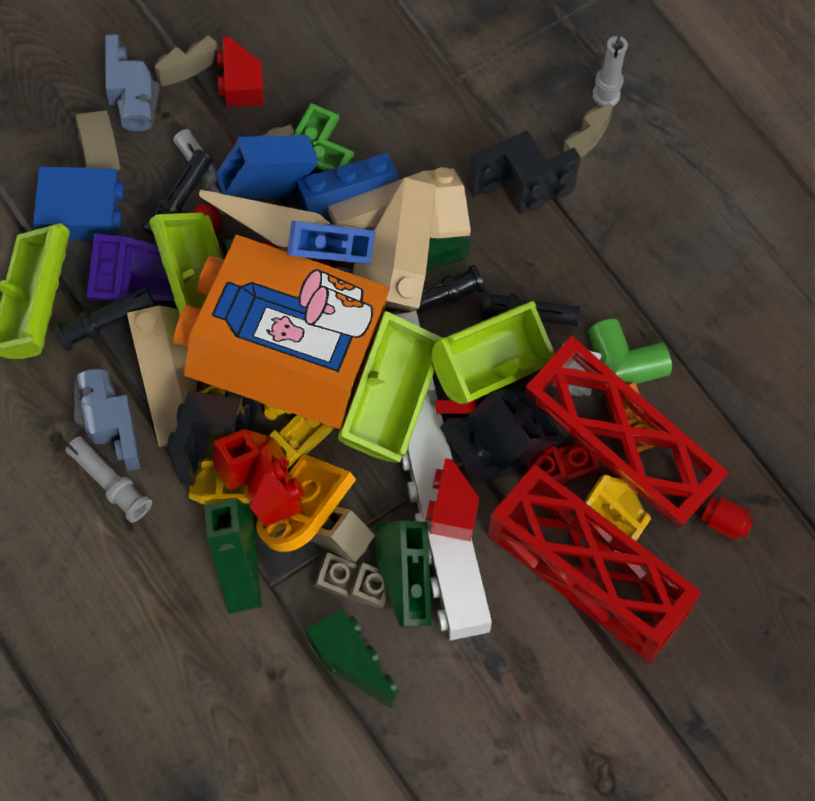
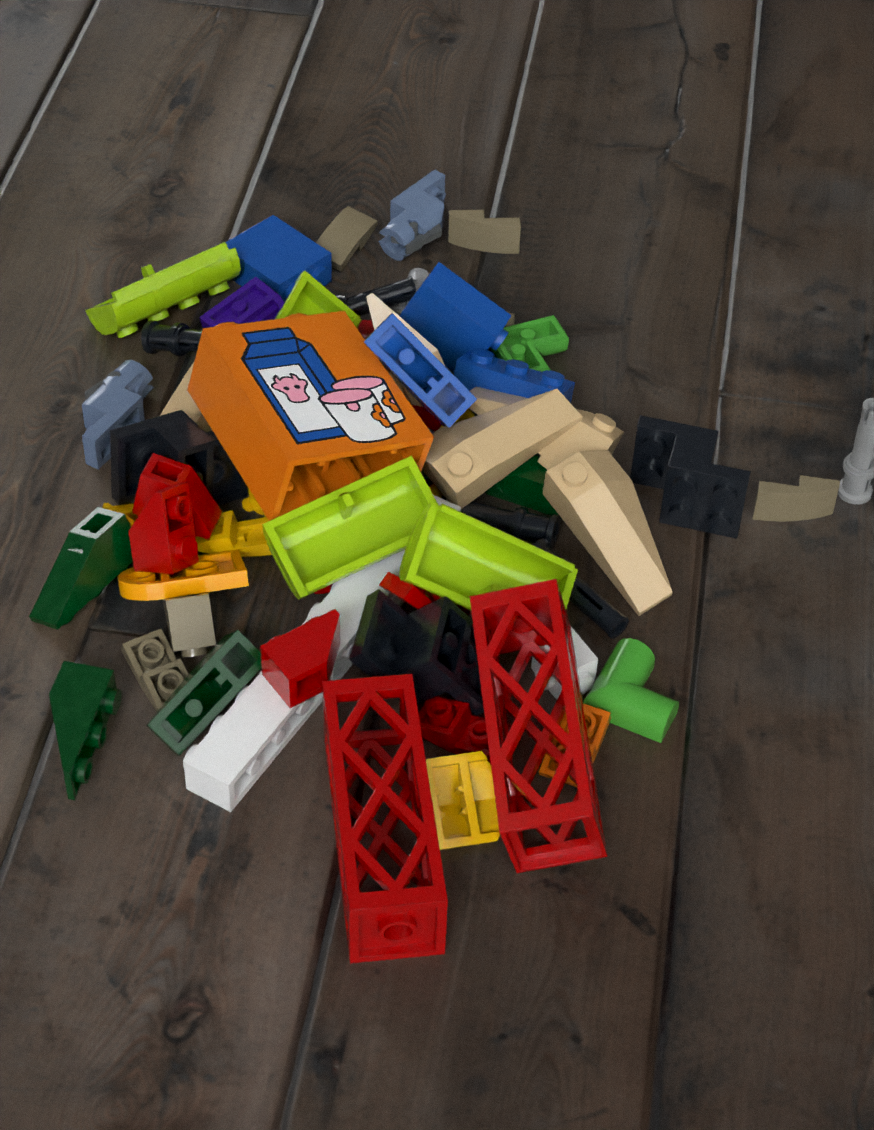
camera: 45 degrees right, 20 degrees down
(117, 488) = (57, 461): light grey pin -> none
(242, 76) = (516, 267): red slope -> none
(508, 246) = (608, 520): none -> tan wedge
(728, 518) = (573, 894): red brick -> none

